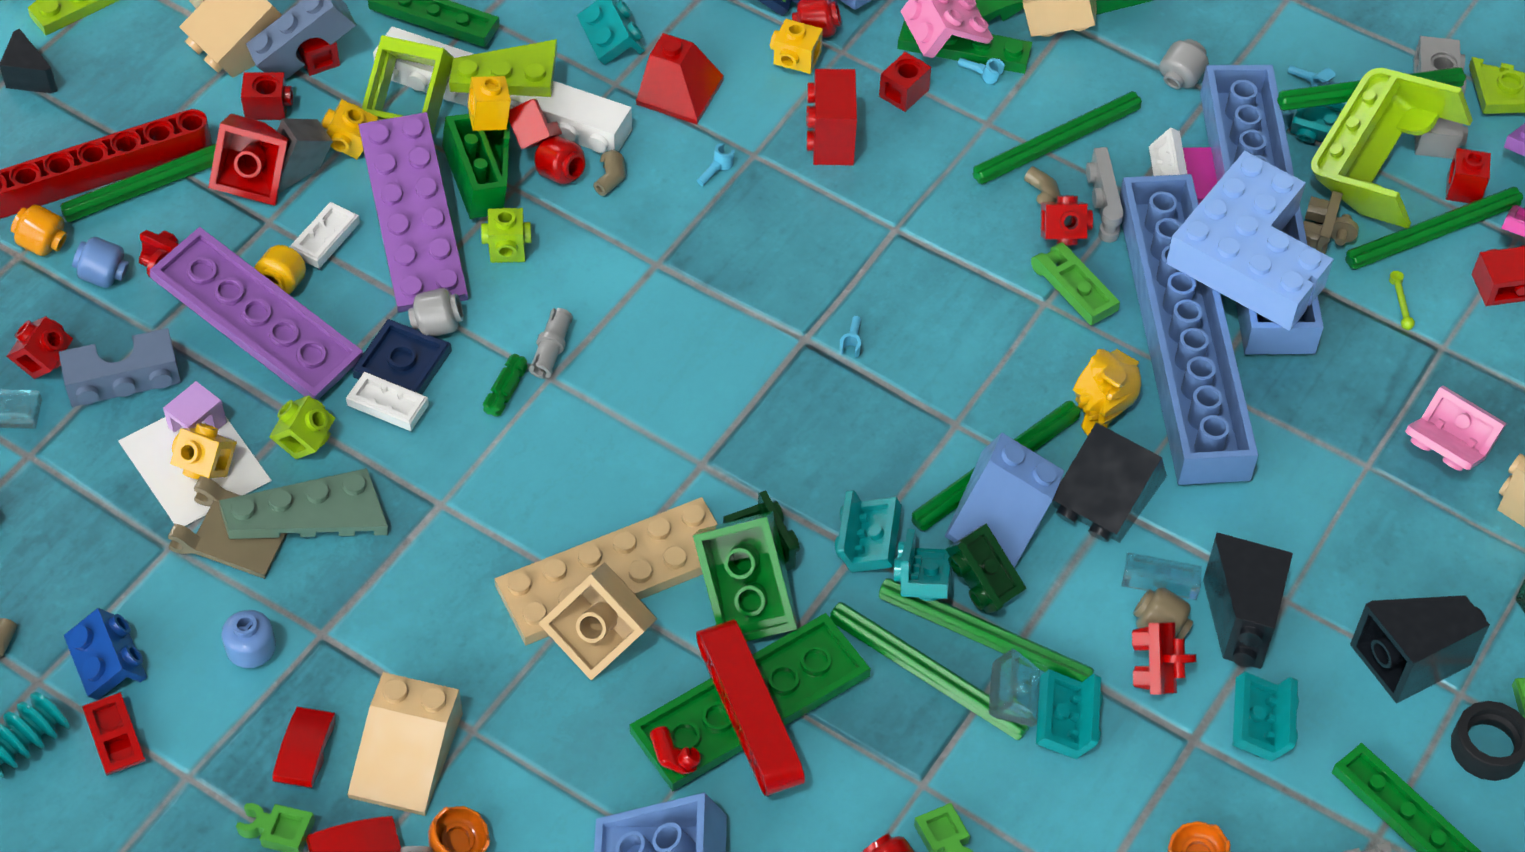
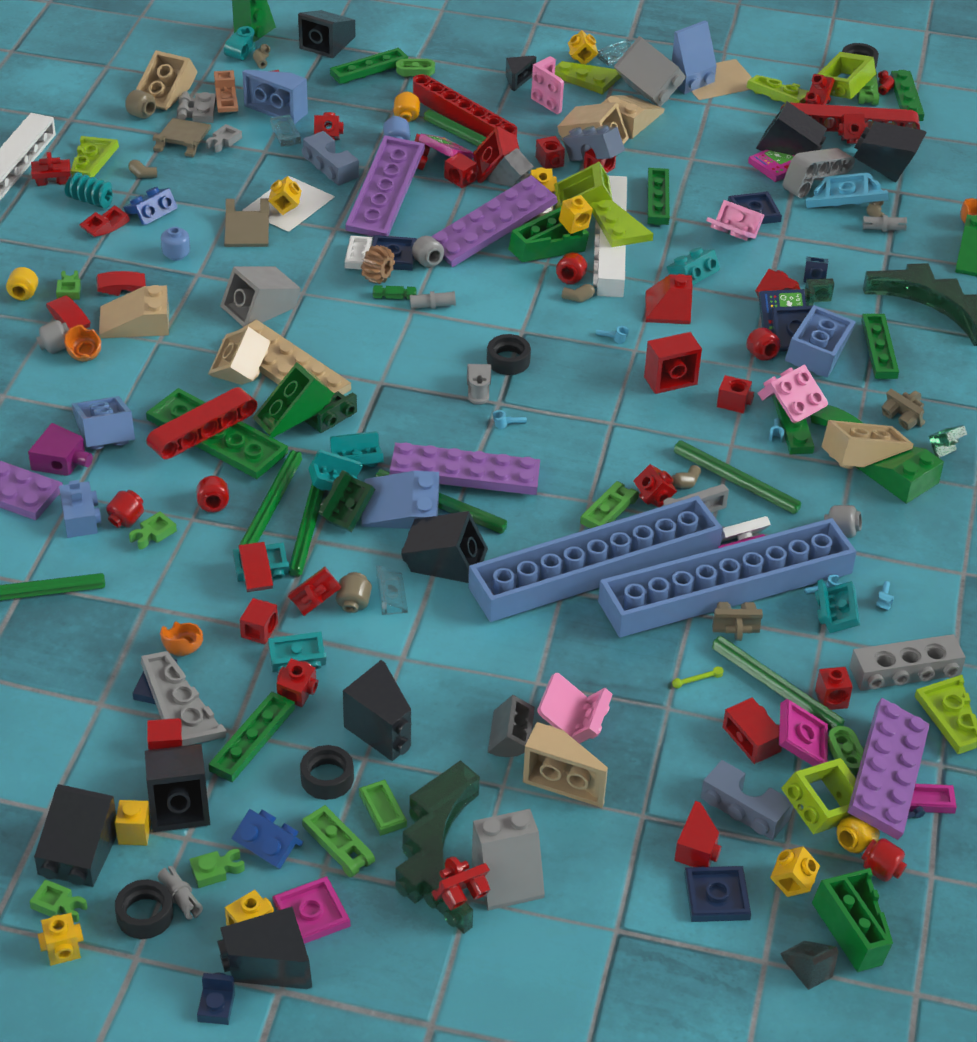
camera: 70 degrees right, 10 degrees down
(110, 42) = (546, 86): none -> bright pink bracket
(184, 211) = (444, 145): none -> dark pink tile
(193, 407) = (315, 185): lavender panel -> none
(250, 213) = (460, 170): none -> red brick
(282, 267) = (425, 190): yellow head -> none
(302, 426) = (314, 219): lime brick -> none
(325, 234) = (462, 200): white plate -> none
(325, 504) = (271, 243): sand green wing -> none
(445, 557) = (258, 294): none -> light grey slope
(448, 380) = (377, 264): none -> medium nougat gear
(506, 234) = (500, 261): lime brick -> none
(530, 124) = (582, 244): panel -> none
(678, 760) = (159, 403): red arm -> none
(717, 271) = (510, 343): none -> black tyre
(762, 341) = (478, 382): none -> light grey piece
(797, 45) = (729, 339): yellow brick -> none
(897, 738) = (212, 494): none -> red head
(947, 417) = (469, 468): none -> medium lavender plate
(1014, 689) = (269, 534): clear light blue slope -> none
(1095, 714) = (255, 566): none -> red slope
(1107, 387) = (517, 529): yellow piece -> none
(1186, 745) = (258, 621): none -> red brick
(1239, 243) = (667, 546): light blue piece -> none
(1245, 596) = (374, 621): black slope -> none
(1329, 727) = (297, 681): none -> red brick
(1341, 92) = (869, 607): green axle -> none
(1368, 129) = (815, 616): lime windscreen -> none
(1457, 515) = (511, 727): none -> dark grey brick

